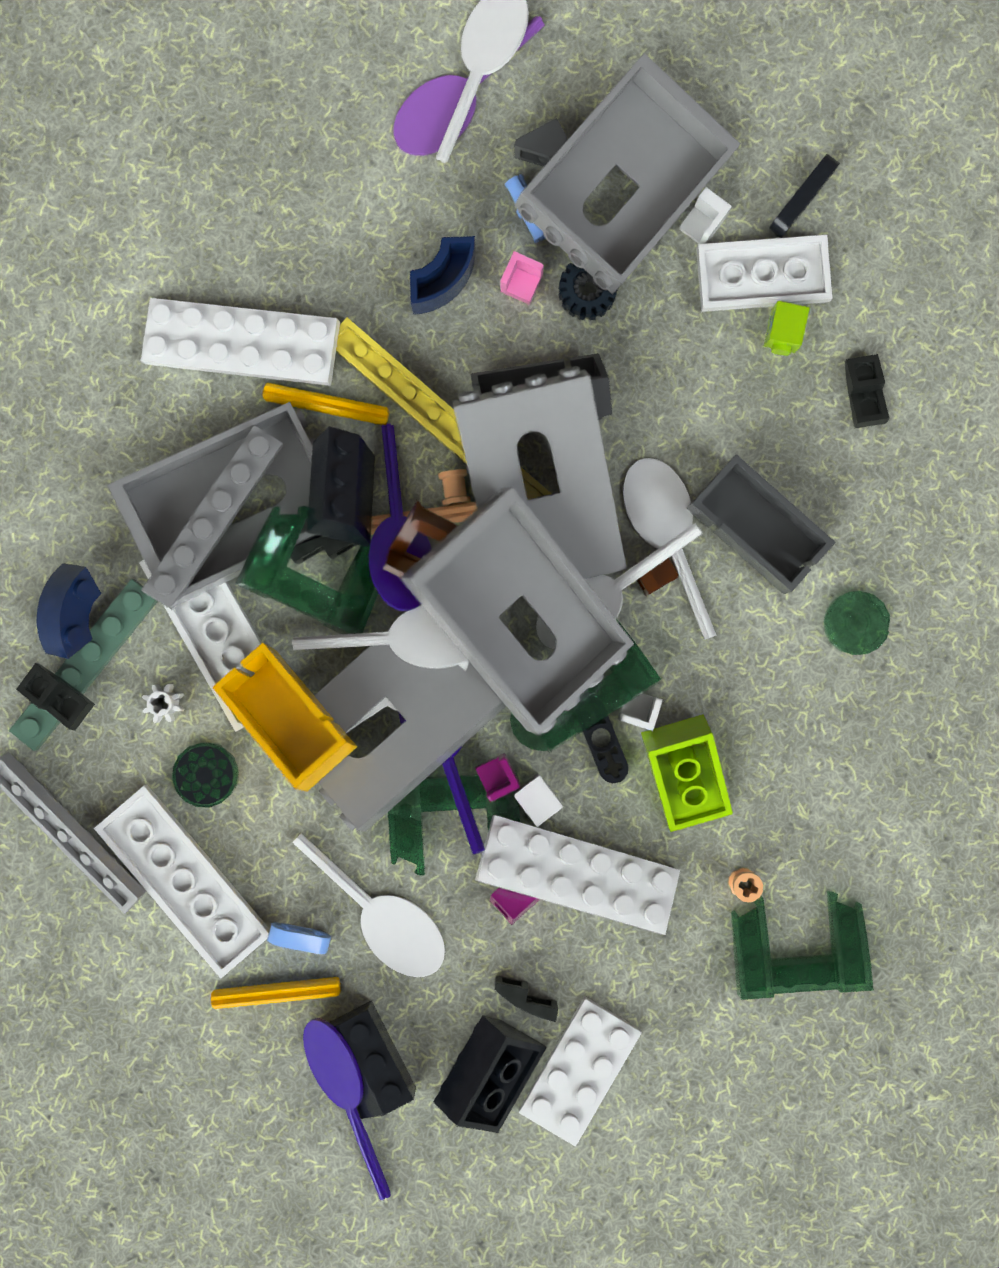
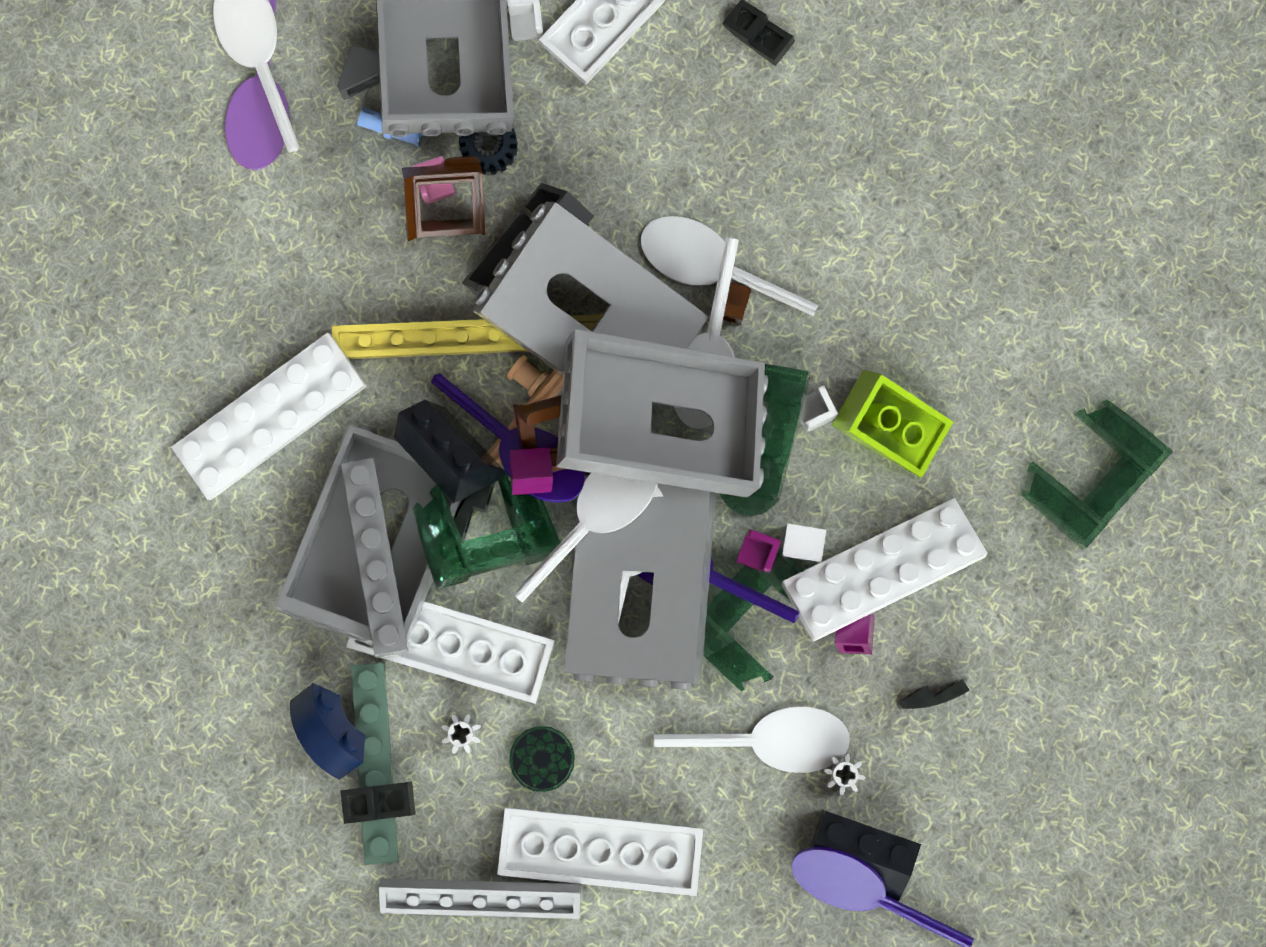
camera: 45 degrees left, 5 degrees down
(275, 992) = (747, 870): yellow axle -> none
(284, 718) = (564, 651): yellow piece -> none
(299, 938) = (725, 810): light blue beam -> none
(326, 404) = (374, 403): yellow axle -> none
(385, 561) = (531, 471): none -> magenta panel
(409, 983) = (837, 780): none -> white gear
(444, 276) = (377, 231): dark blue brick -> none
(488, 1075) = (960, 778): black slope -> none
(540, 283) = (453, 171): none -> reddish brown piece
(580, 1071) = (1023, 714): white plate -> none
(617, 757) = (831, 460): black beam -> none
(748, 894) = (1010, 473): light nougat bush -> none
(761, 525) = (774, 196): dark grey piece -> none
(786, 328) = (658, 40): lime brick -> none
(850, 630) = (901, 207): clear green tile -> none

